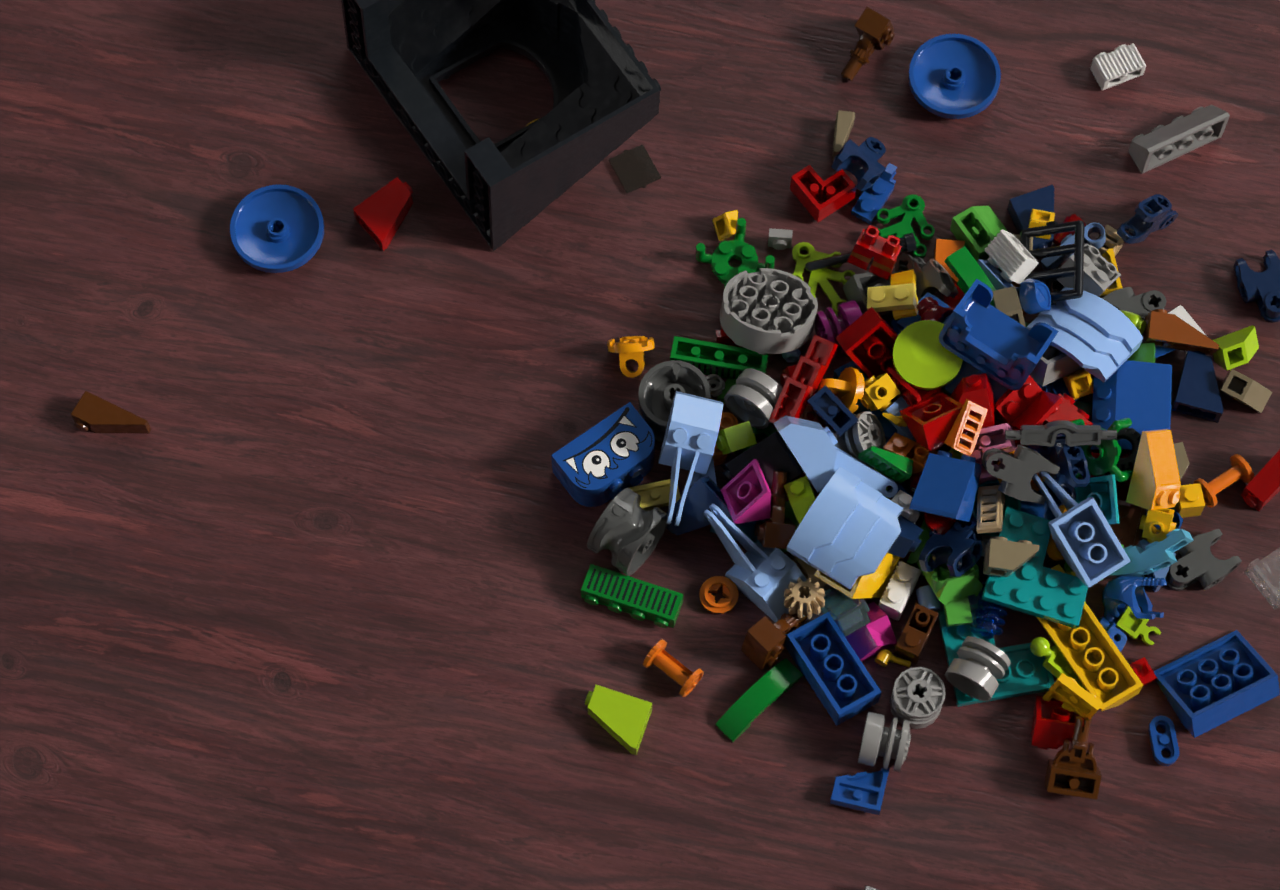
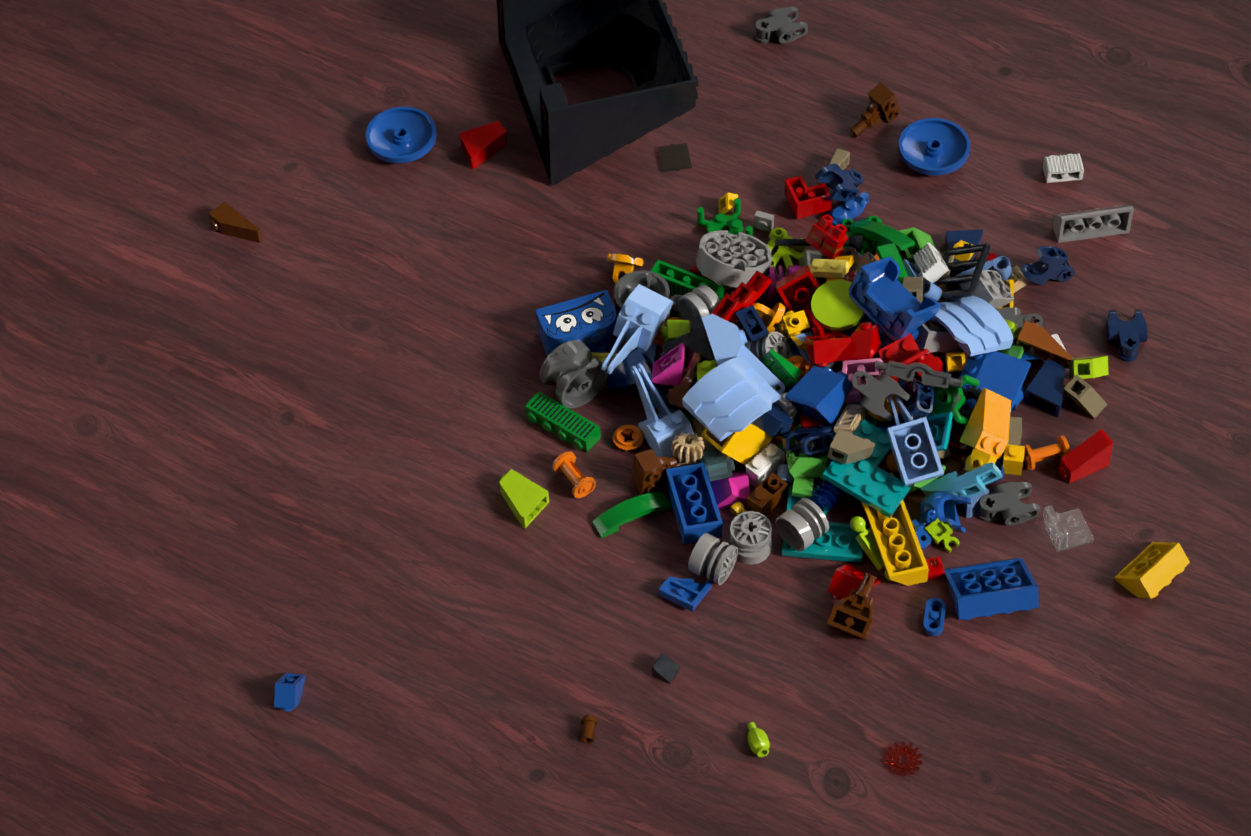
camera: 20 degrees right, 15 degrees down
(942, 229) = (881, 234): none -> green slope
(959, 425) = (838, 354): orange slope -> none
(1034, 296) = (936, 288): blue hat -> none
(1073, 697) = (869, 561): yellow wing -> none

